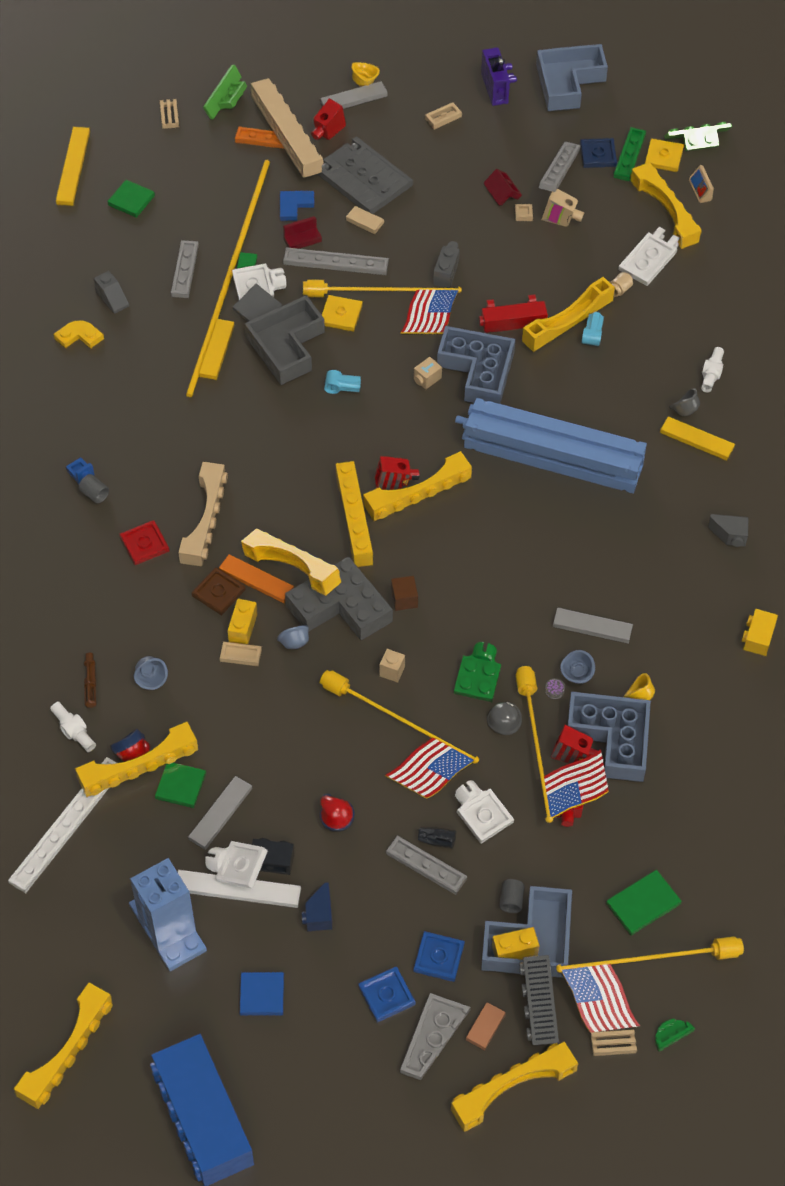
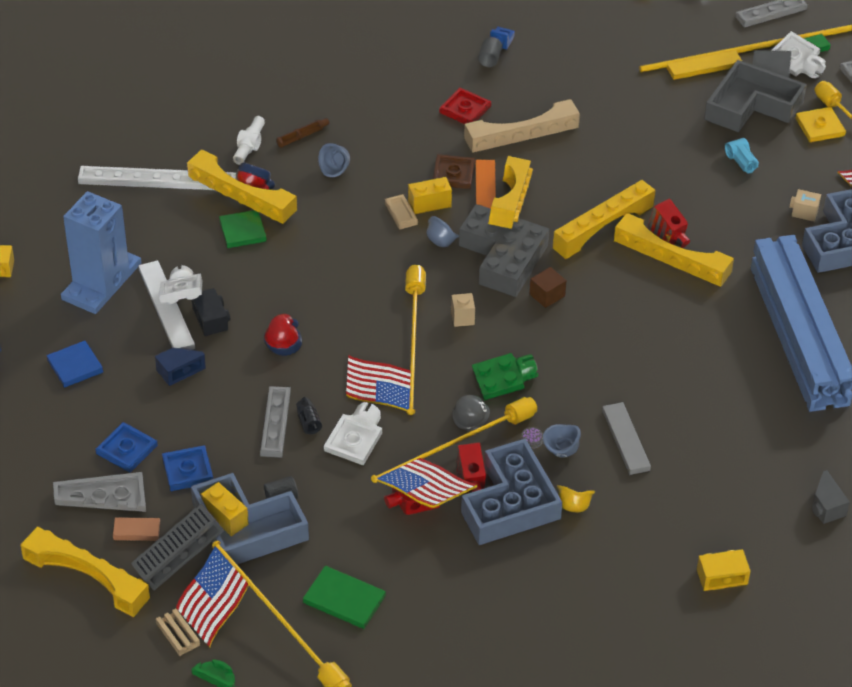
camera: 60 degrees right, 10 degrees down
(220, 812) = (233, 264): light grey tile -> none

